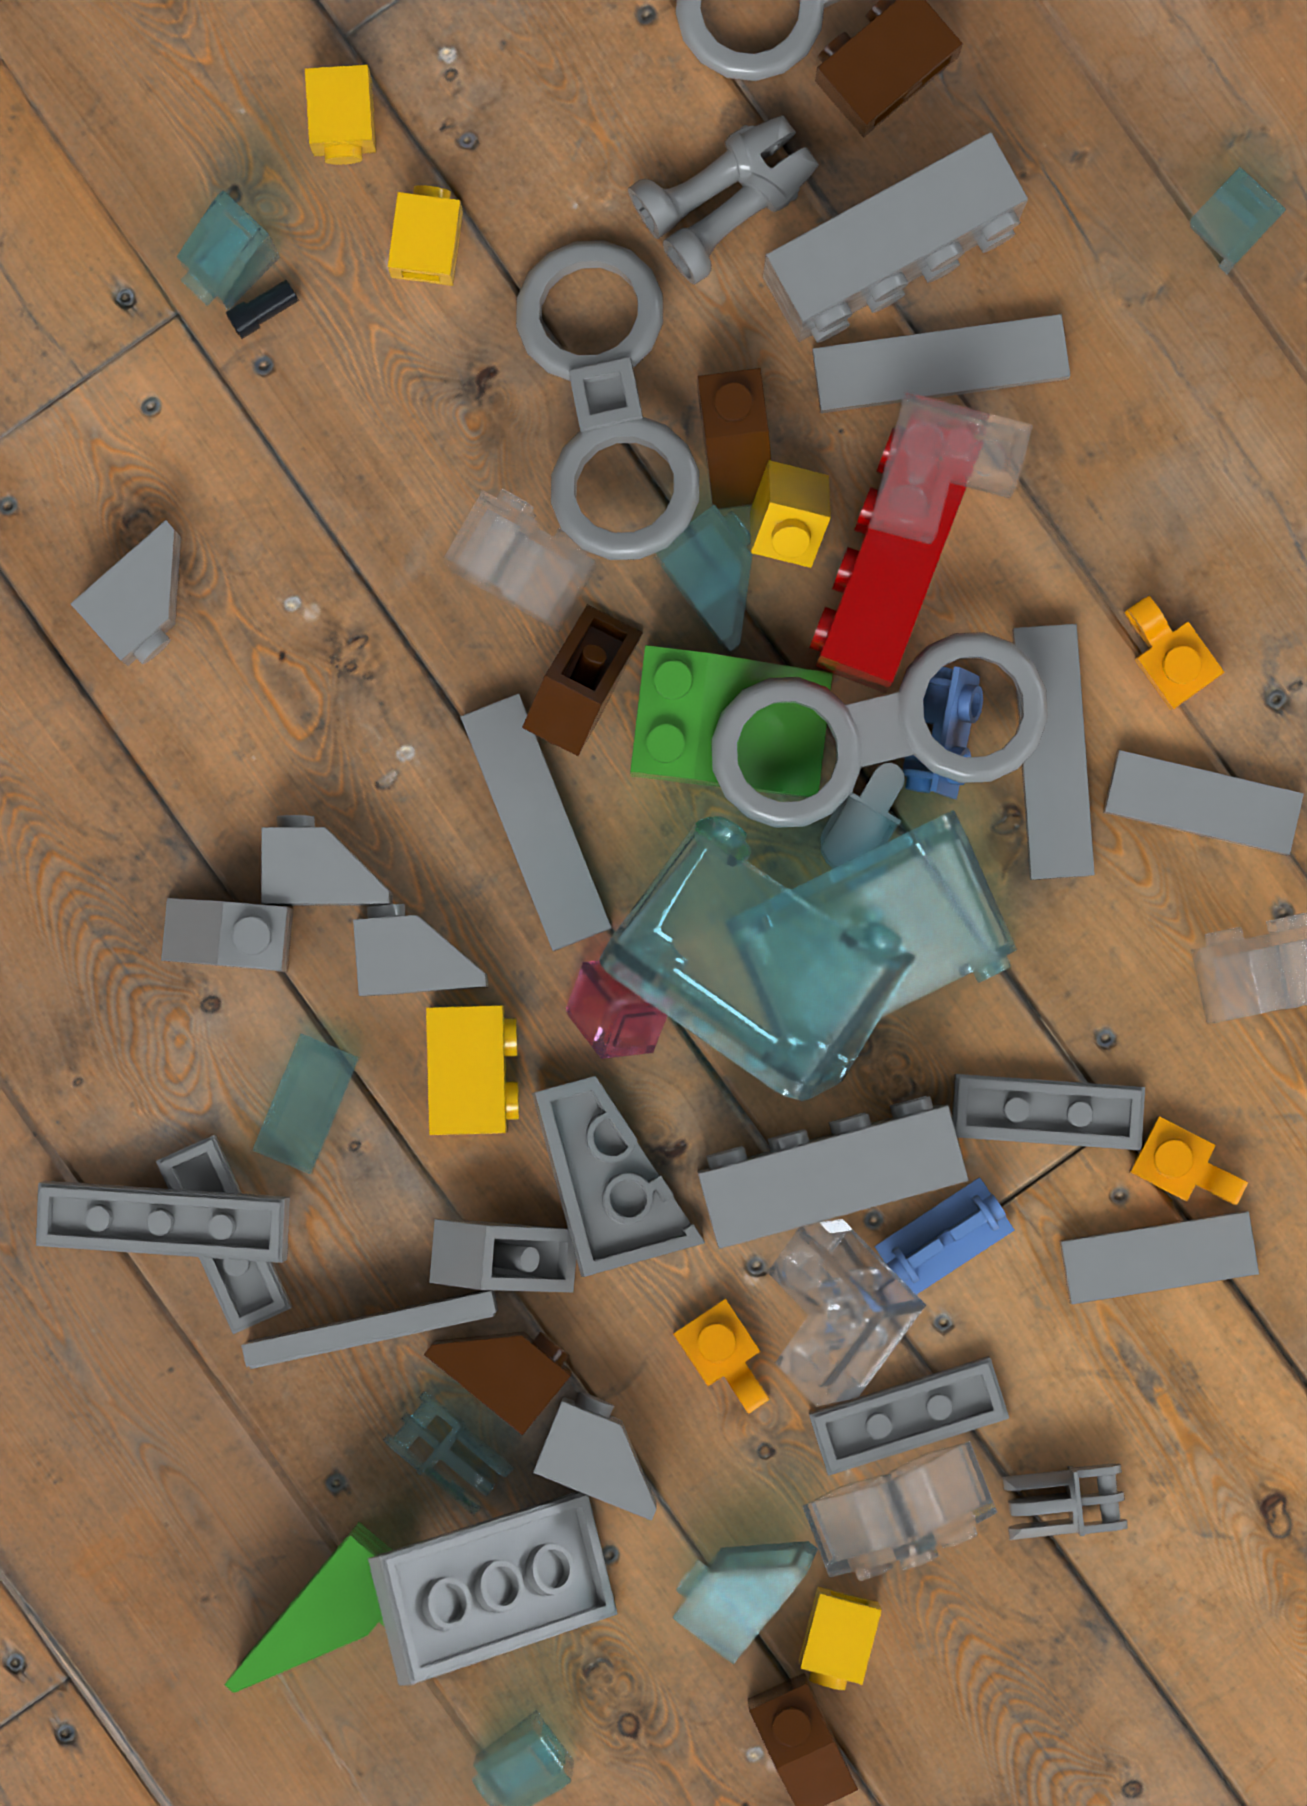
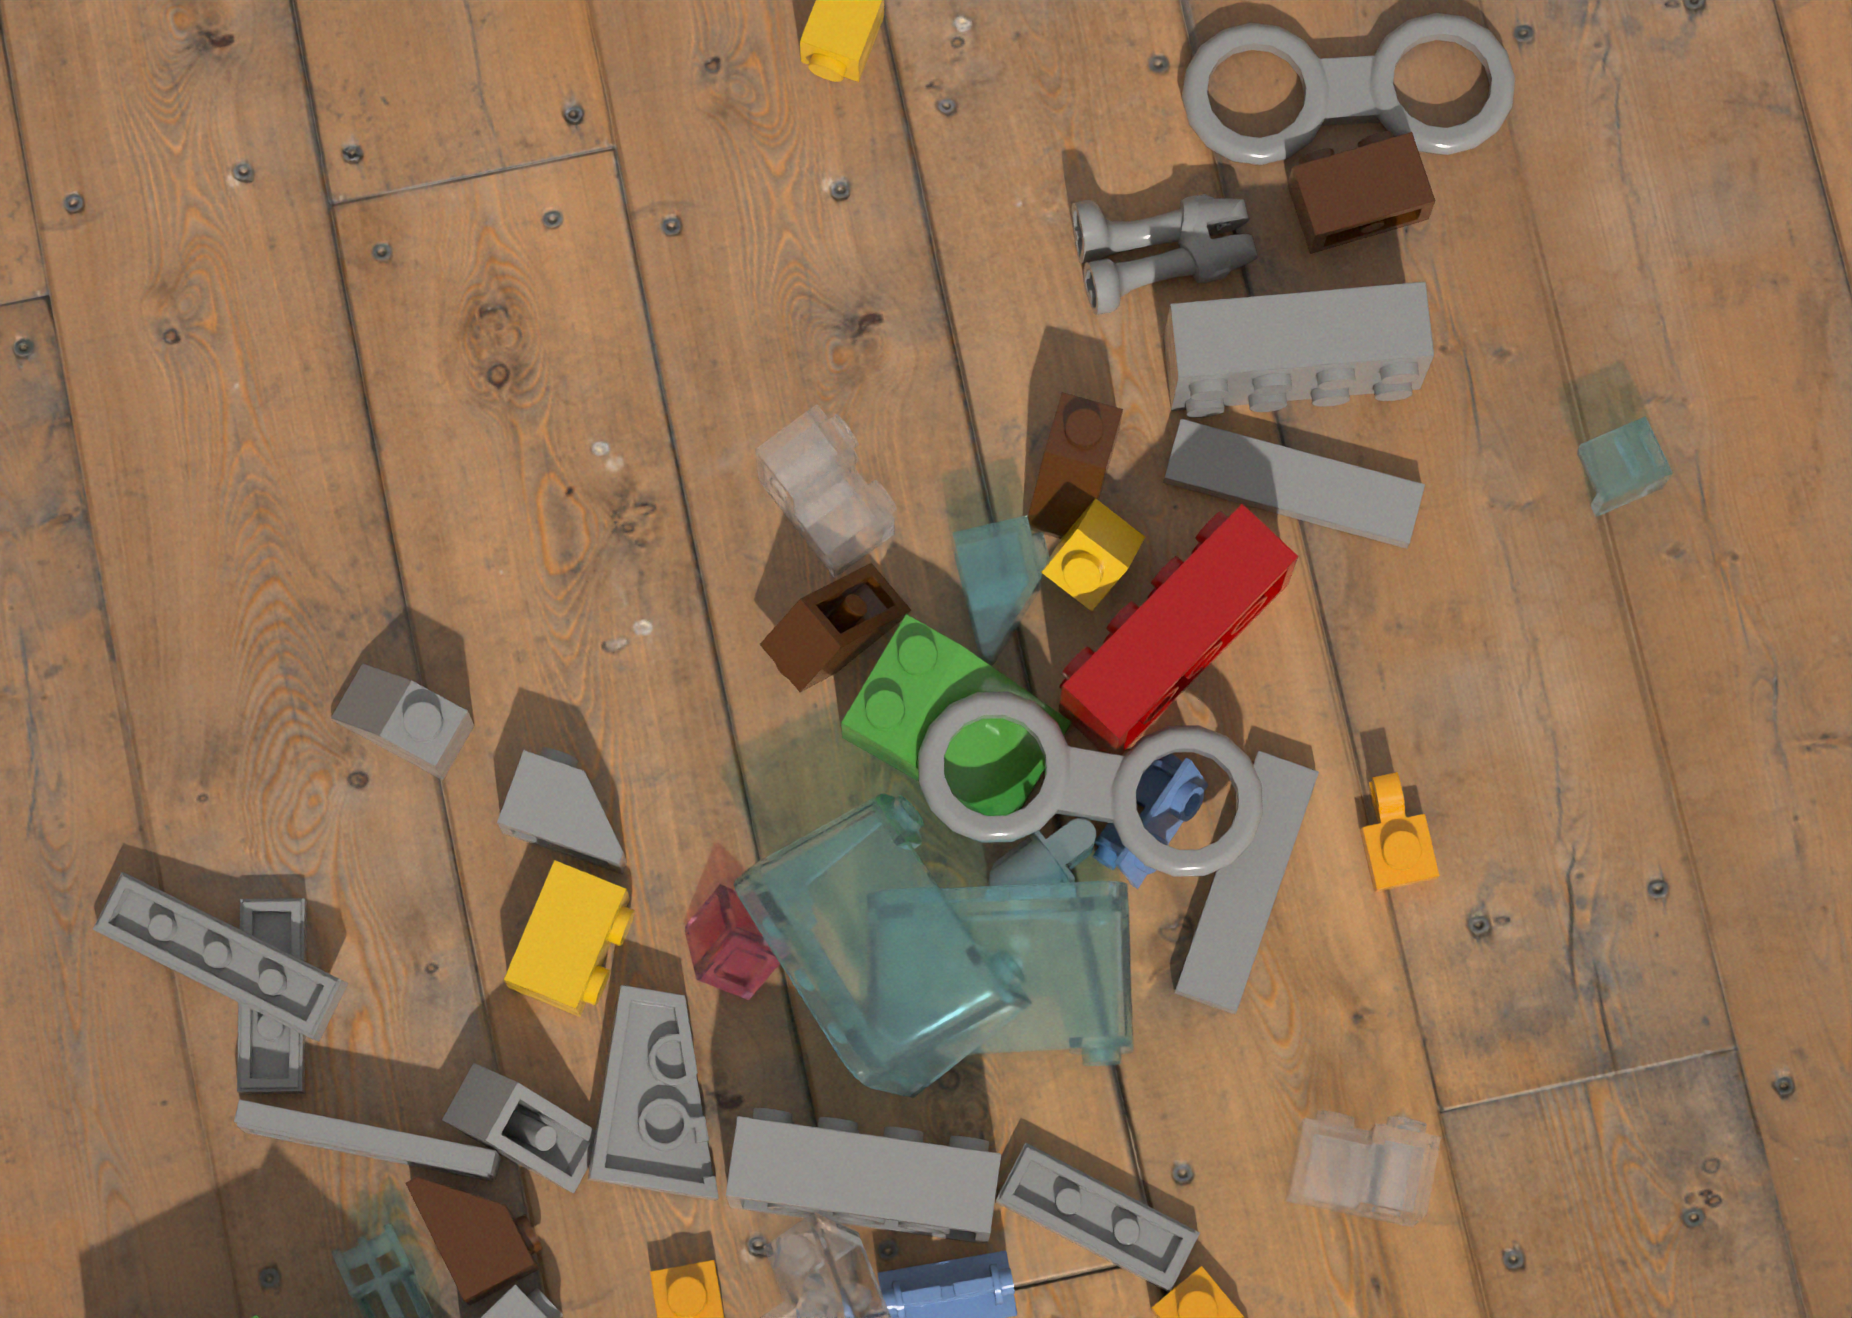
camera: 20 degrees right, 10 degrees down
(136, 598) = (460, 378): light grey slope -> none
(225, 253) = (681, 107): clear light blue slope -> none
(248, 316) = (676, 175): black piece -> none
(306, 1103) = (404, 907): clear light blue tile -> none
(314, 868) = (509, 692): light grey slope -> none
(425, 236) = (869, 170): yellow brick -> none
(535, 823) = (734, 741): light grey tile -> none
(607, 400) = (970, 384): light grey bar -> none
(941, 446) = (1254, 536): clear brick -> none
(1203, 803) = (1368, 990): light grey tile -> none

